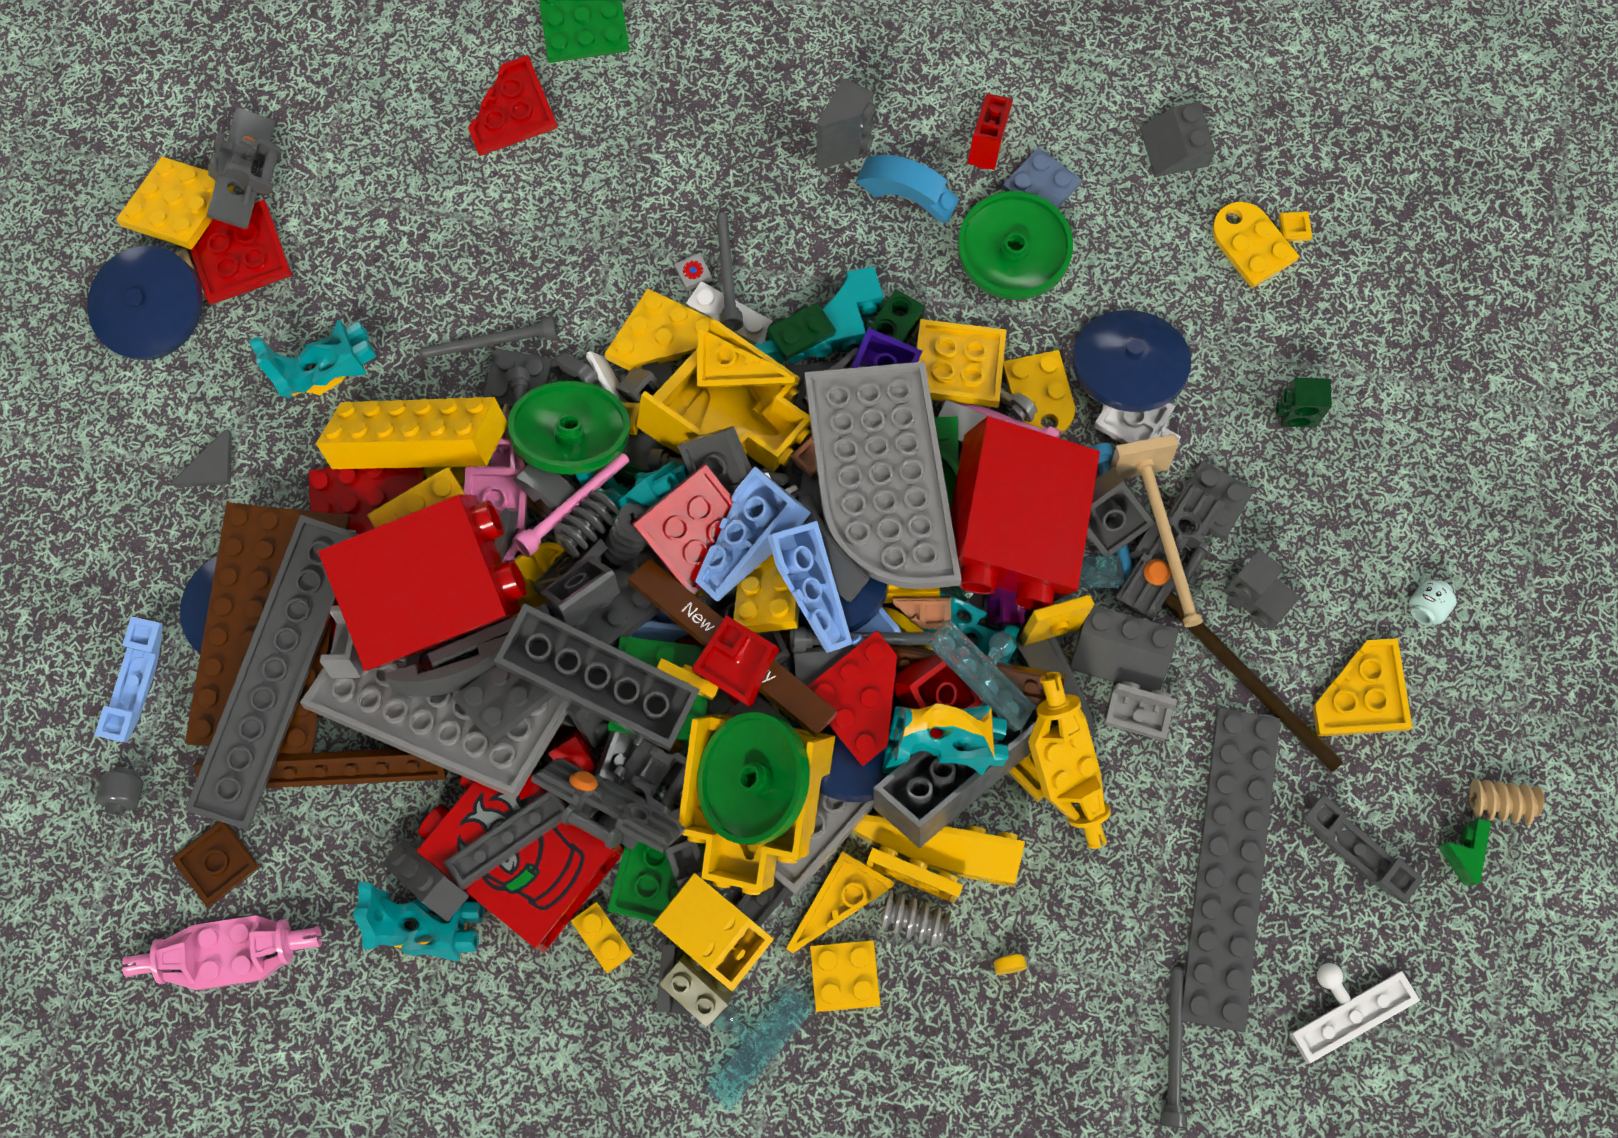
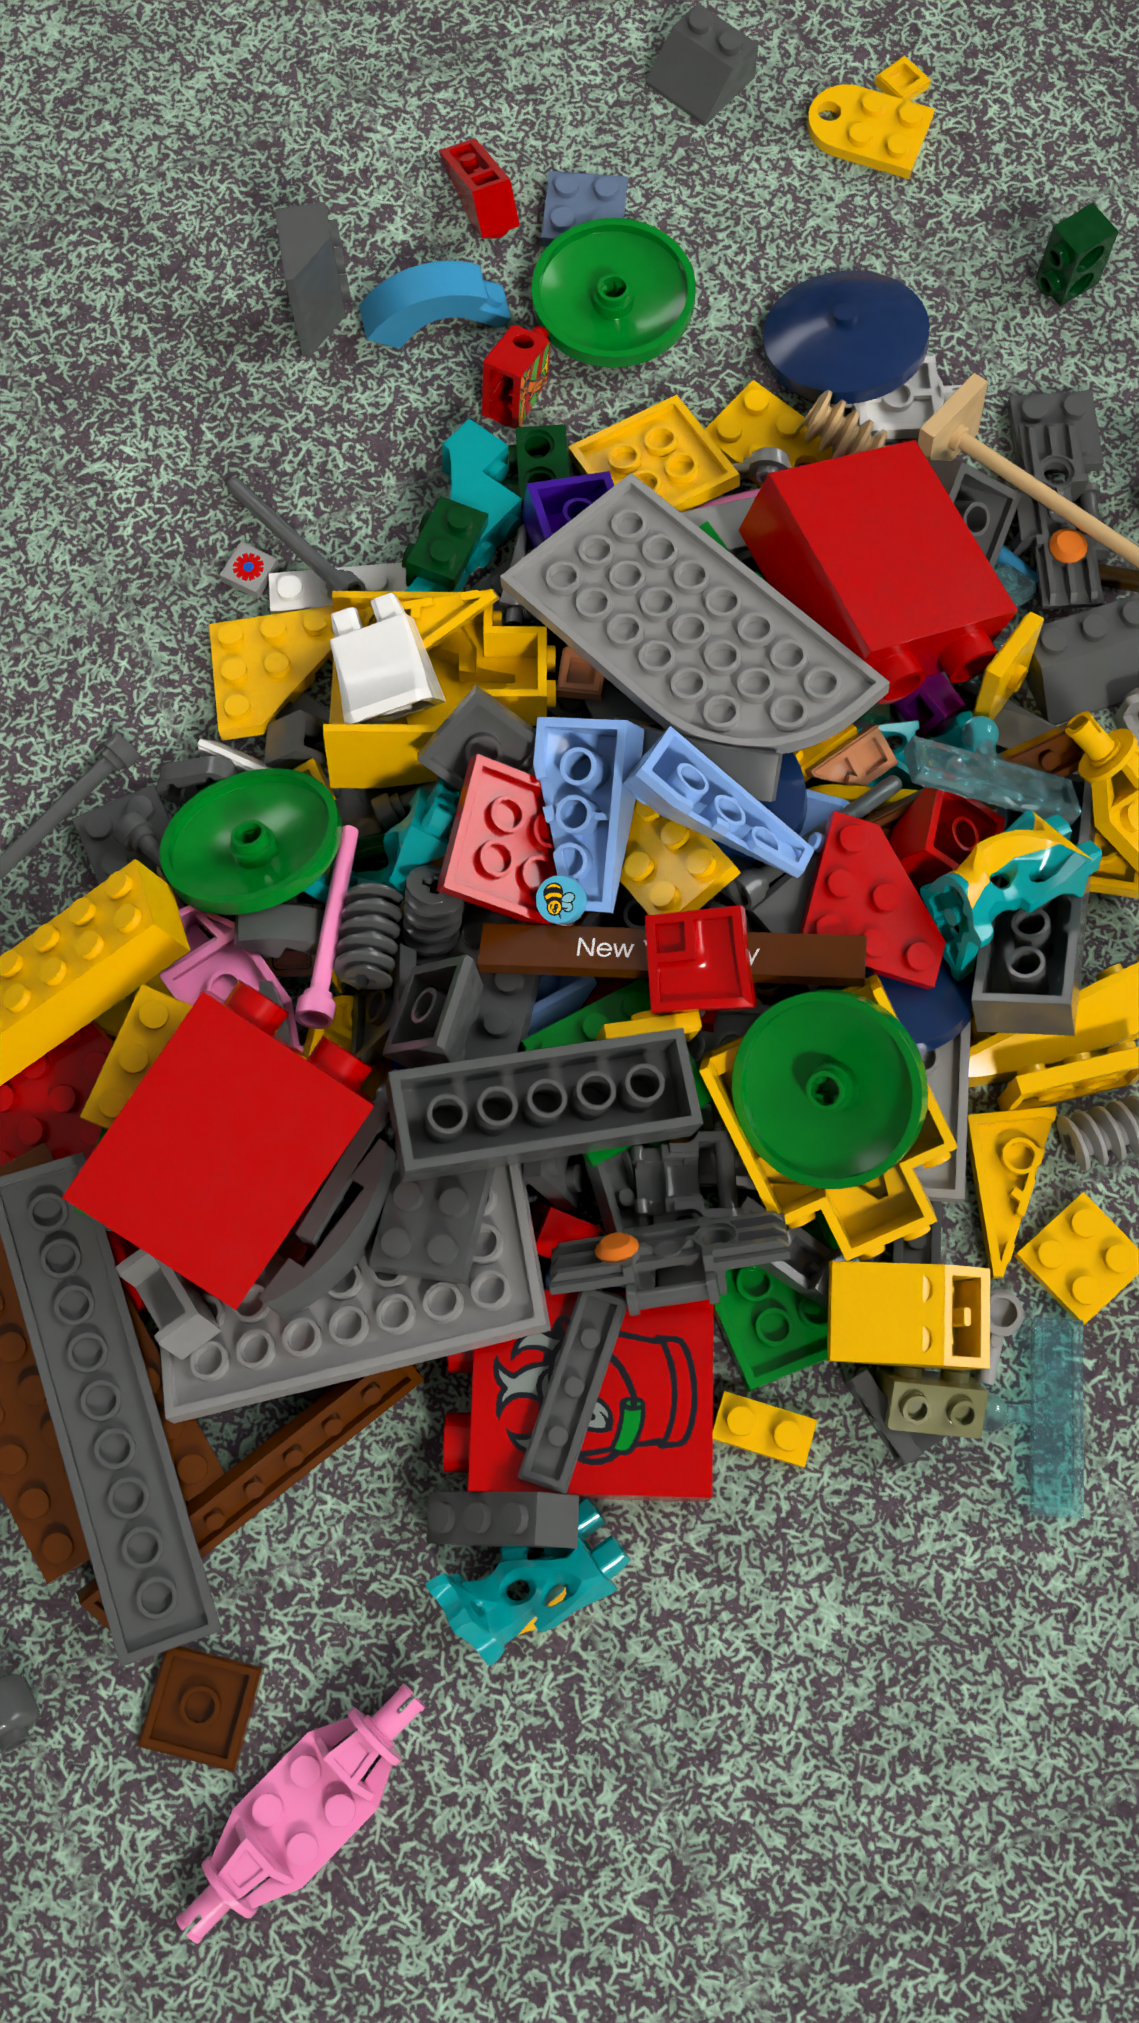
camera: 35 degrees left, 0 degrees up
(694, 575) = (561, 899): none -> medium azure tile
(705, 379) = (383, 665): none -> white hips
(774, 972) = (1005, 1319): none -> light grey plate
(922, 257) = (520, 359): none -> red torso
(1079, 417) = (839, 429): none -> tan piece

